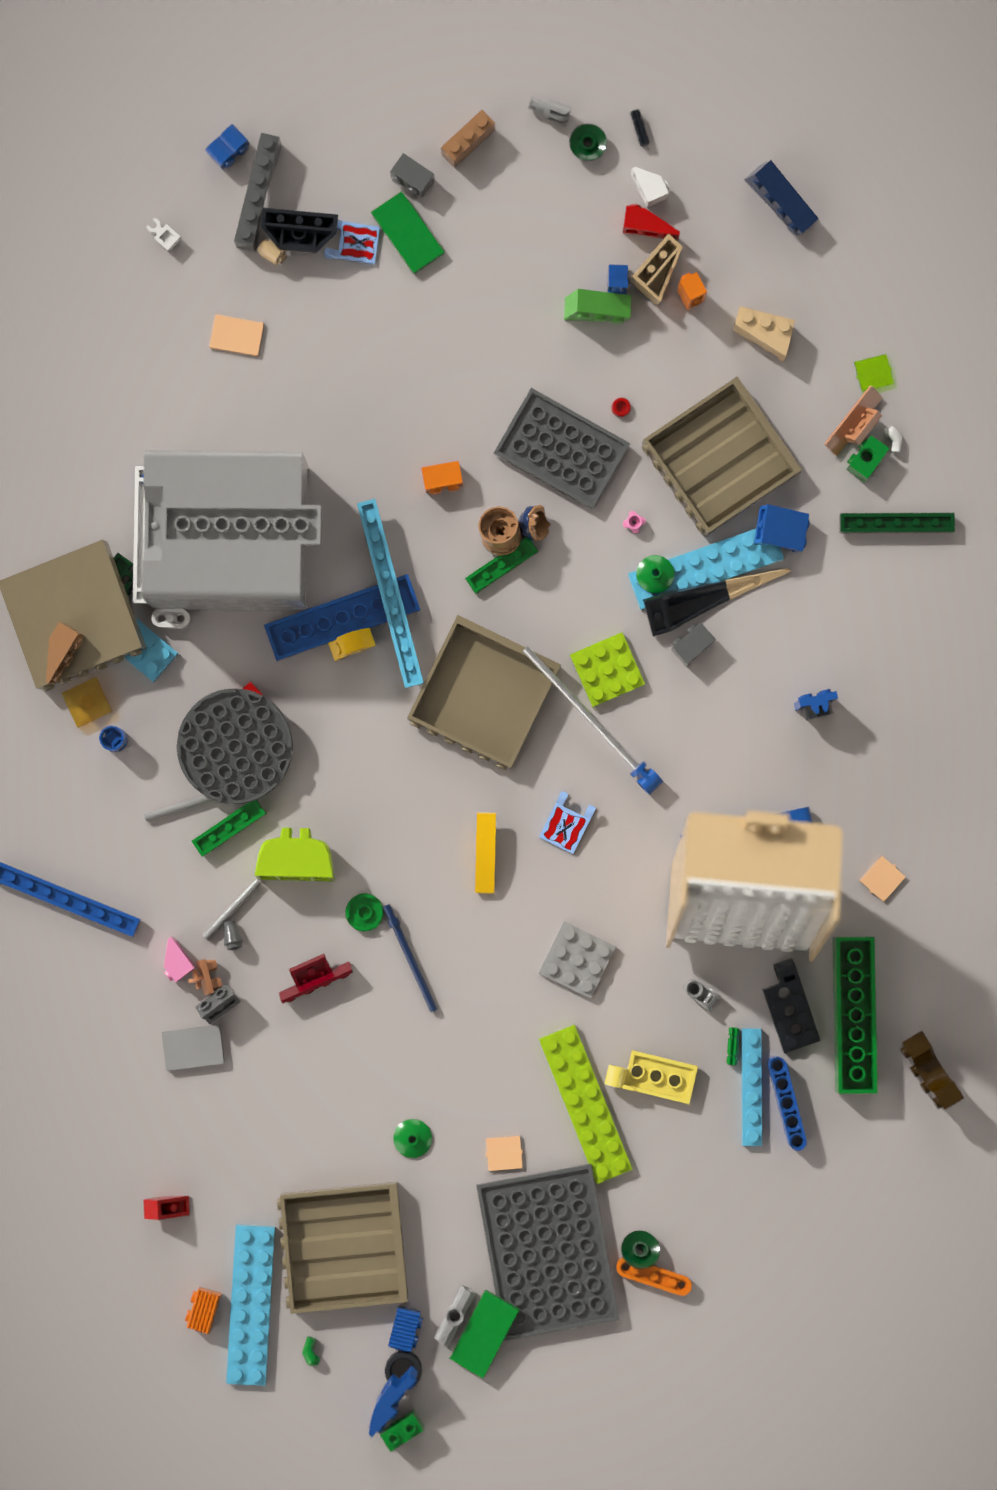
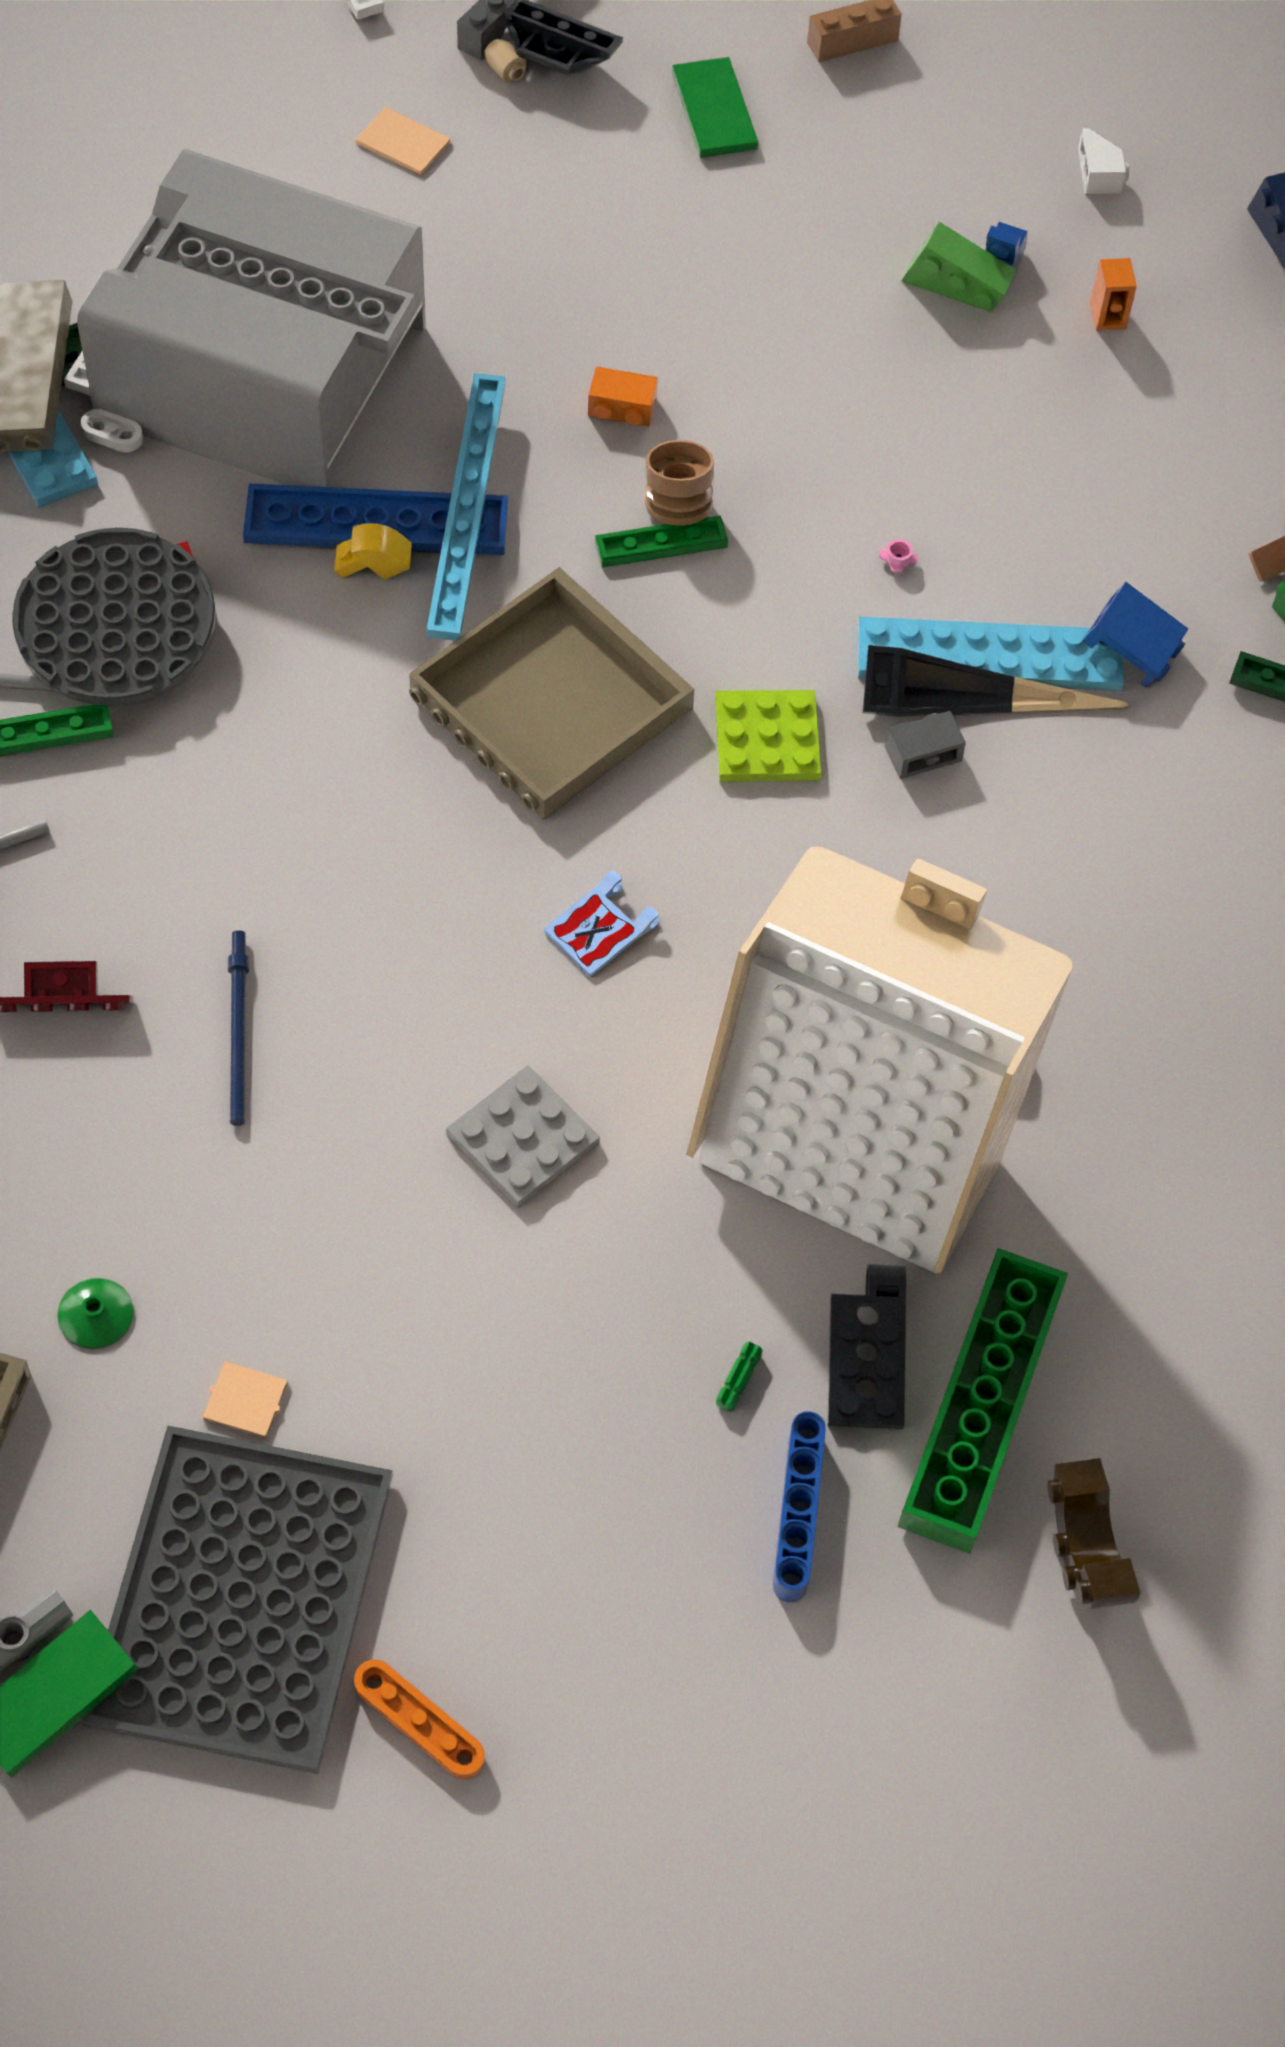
camera: 20 degrees right, 25 degrees down
(295, 858) = (121, 803): lime hips -> none
(356, 243) = (630, 92): flag -> none
(364, 912) = (197, 933): green tile -> none
(412, 175) = (753, 43): dark grey brick -> none
(485, 853) = (442, 914): yellow slope -> none
(534, 523) = (738, 497): medium nougat hair -> none
(552, 110) = (990, 37): light grey arm -> none
(561, 448) = (826, 426): dark grey plate -> none
(585, 1104) = (429, 1375): lime plate -> none
(588, 133) = (1029, 87): dark green dish -> none
(621, 407) = (941, 409): red tile -> none
(624, 1079) = (515, 1348): light yellow hinge -> none
(639, 127) = (1113, 99): black axle -> none
(643, 1241) = (415, 1656): dark green dish -> none
(645, 223) = (1078, 205): red slope -> none
(647, 780) = (756, 884): flat silver piece -> none
(653, 583) = (890, 631): green dish -> none
(656, 270) = (1068, 254): tan wedge -> none
(704, 996) = (720, 1272): light grey piece -> none
(721, 456) = (1074, 516): dark tan panel -> none
(751, 1086) = (744, 1460): medium azure plate -> none
(765, 329) = (1209, 381): tan wedge -> none
(818, 705) = (1100, 889): blue piece -> none
(882, 878) = (1117, 1209): light nougat piece -> none

